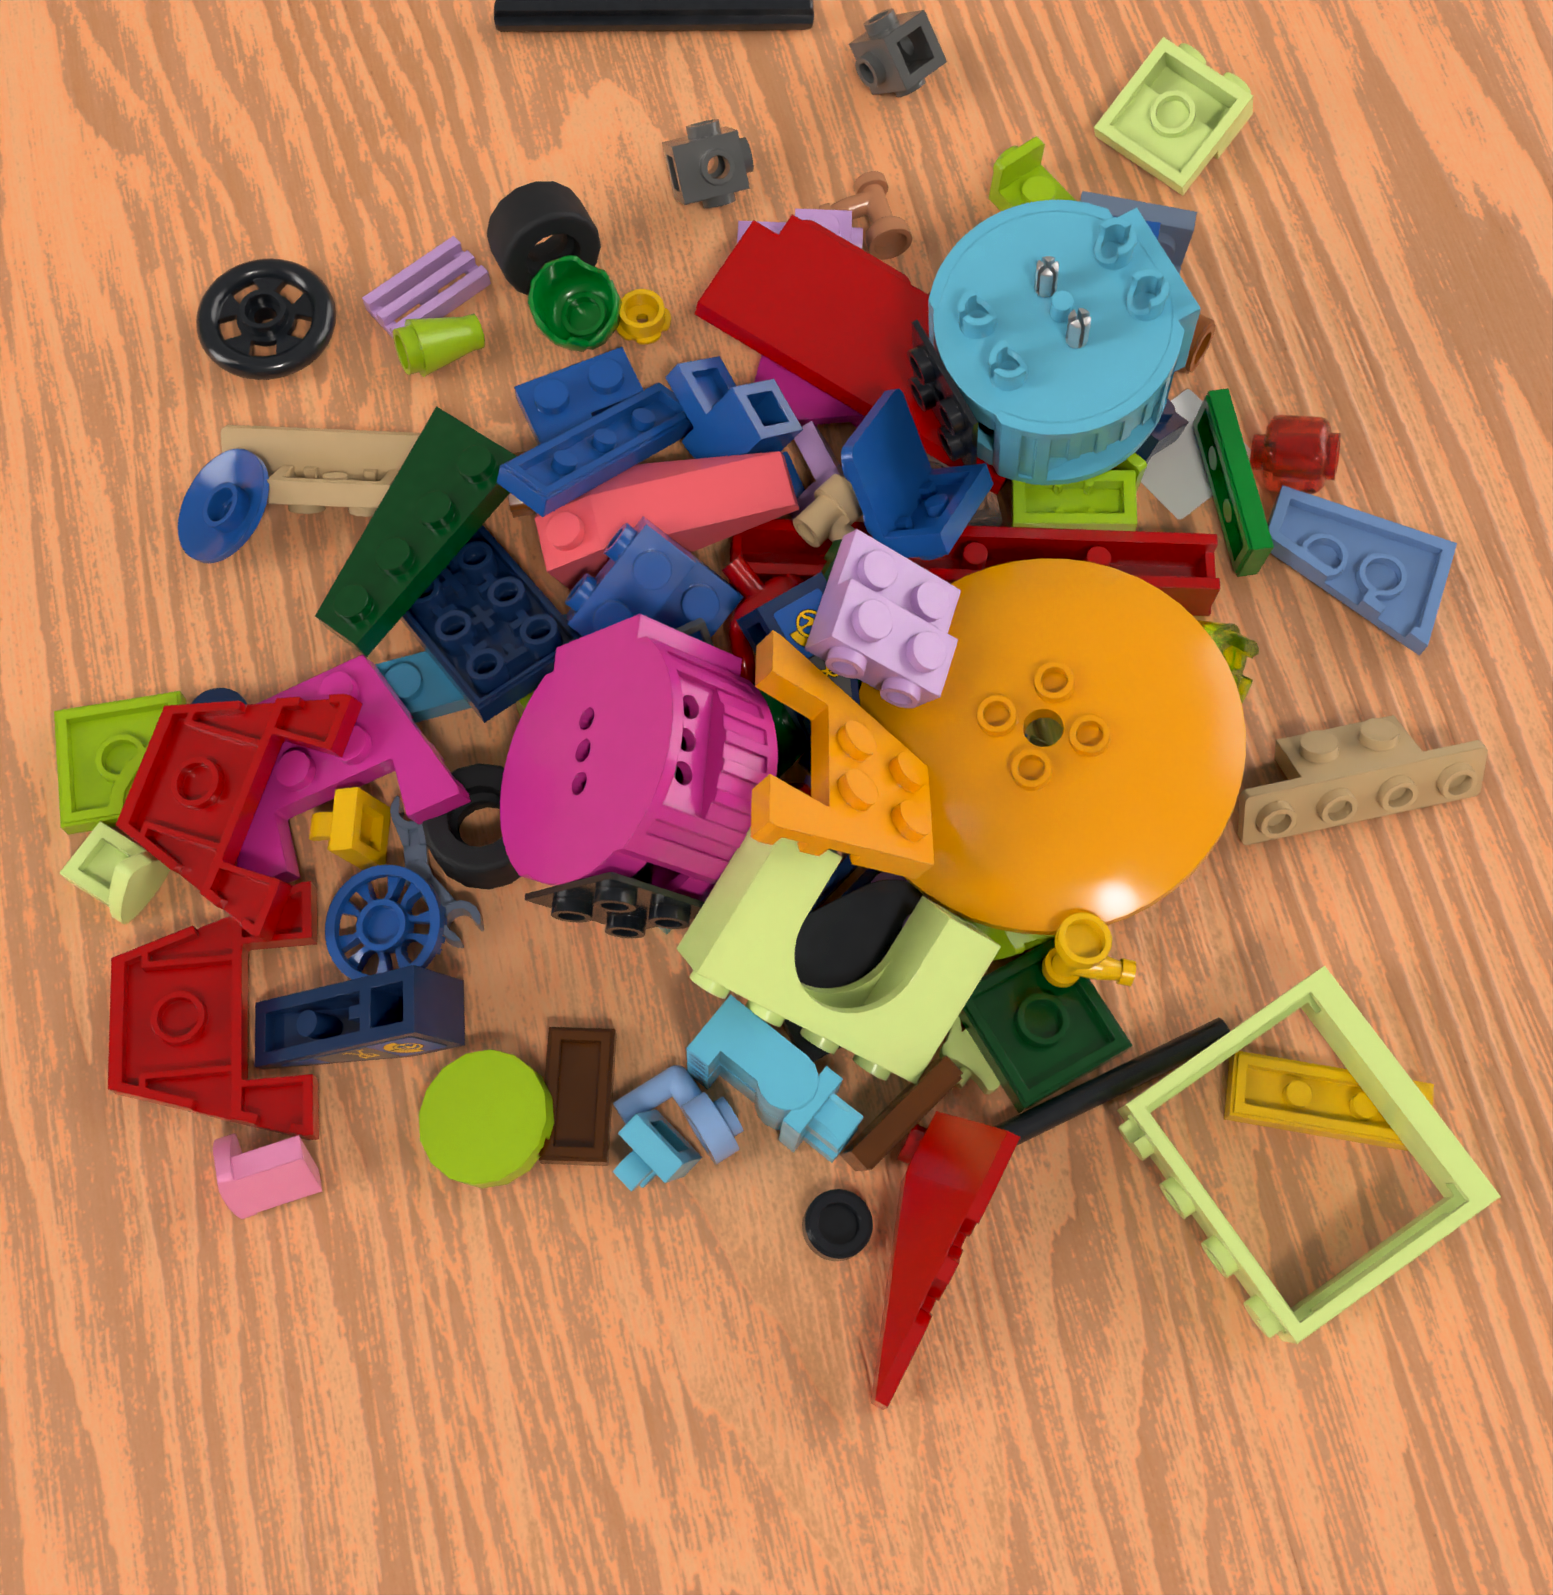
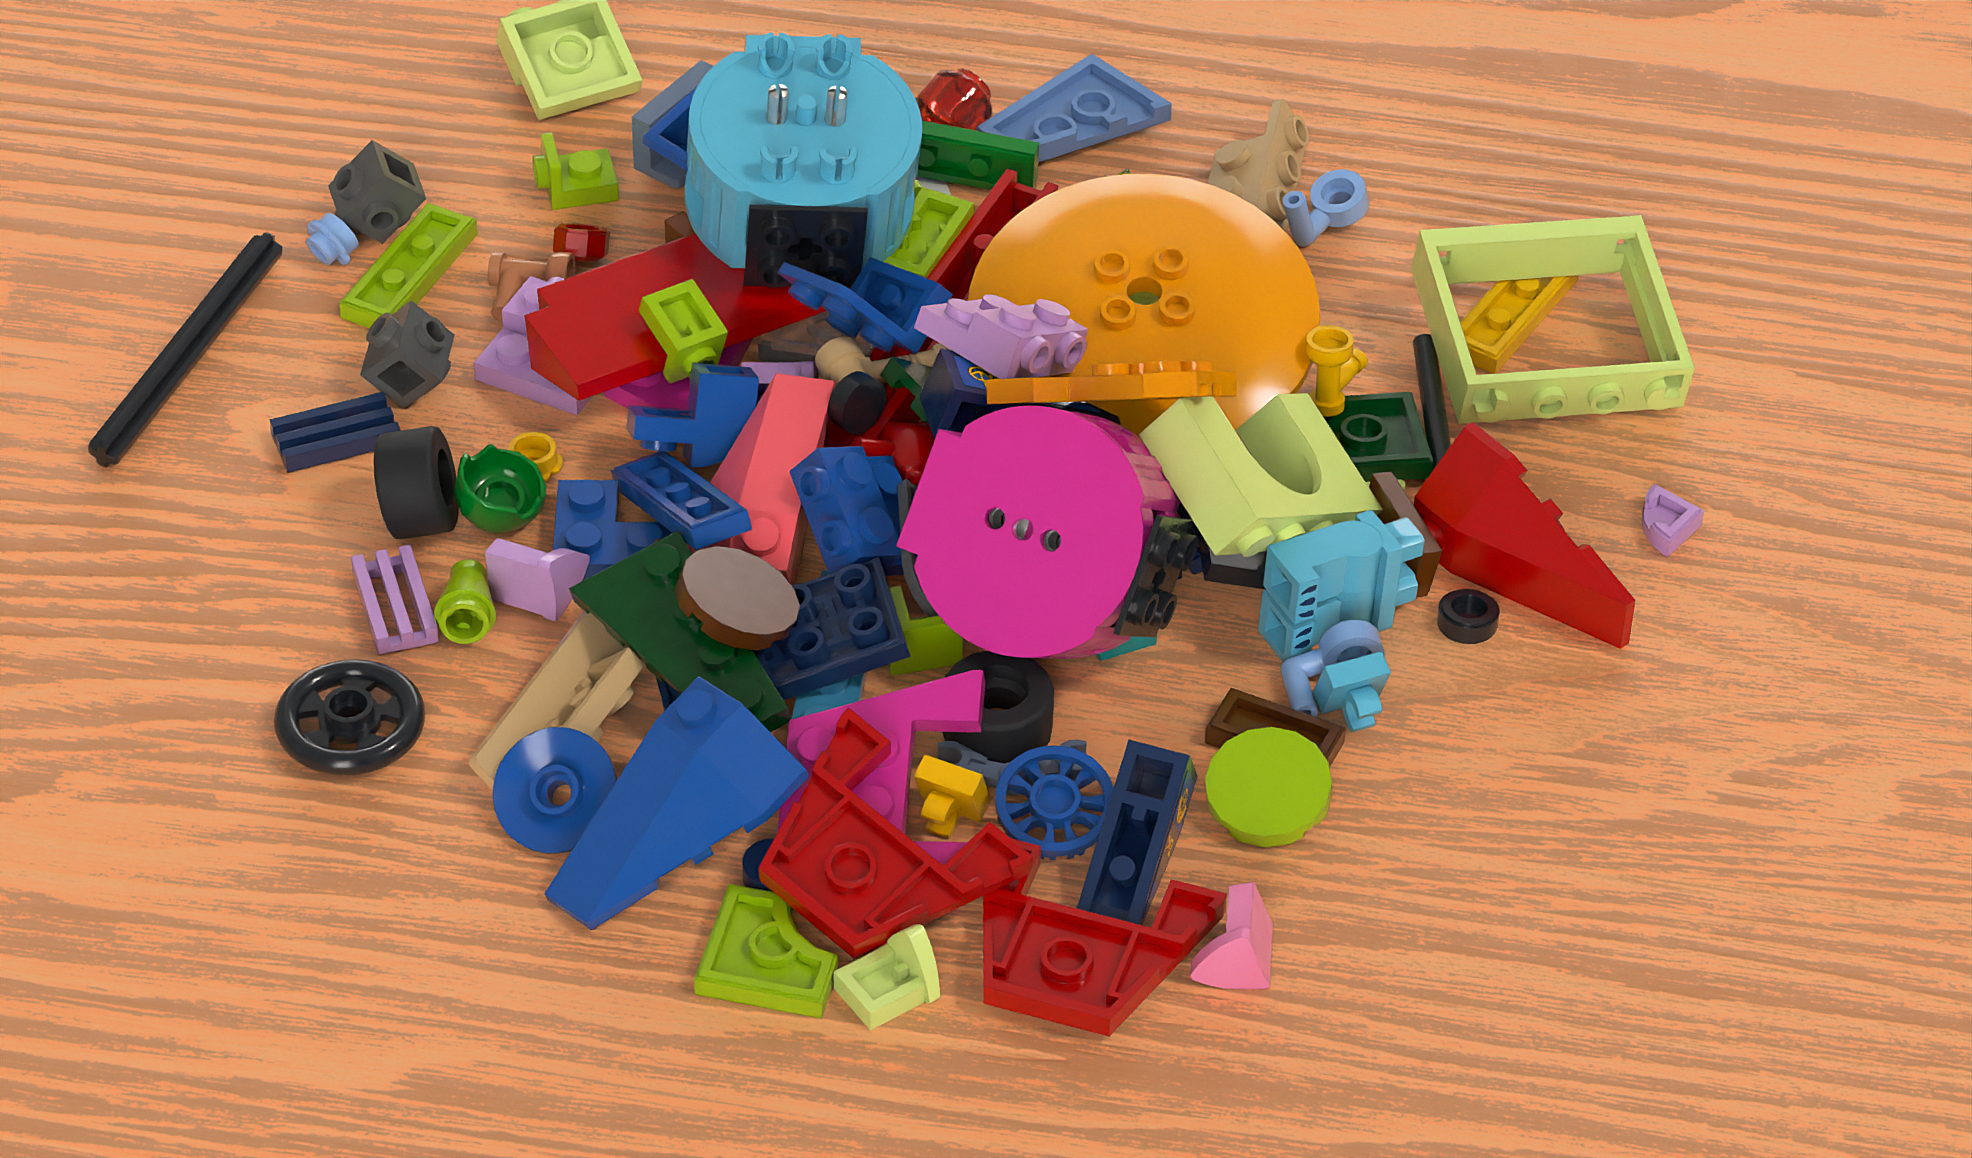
camera: 65 degrees left, 25 degrees down
(220, 608) = (684, 789): none -> blue wedge
(449, 542) = (737, 597): none -> tile
(480, 394) = (533, 577): none -> lavender tile
(616, 154) = (332, 431): none -> dark blue tile
(782, 536) = (857, 402): none -> black tile
(810, 352) = (684, 327): none -> lime bracket
(834, 52) = (331, 239): none -> light blue plate
(843, 124) = (409, 265): none -> lime tile
(936, 231) = (585, 241): none -> red tile
(1083, 1388) = (1668, 519): none -> lavender tile
(1374, 847) = (1337, 201): none -> light blue plate

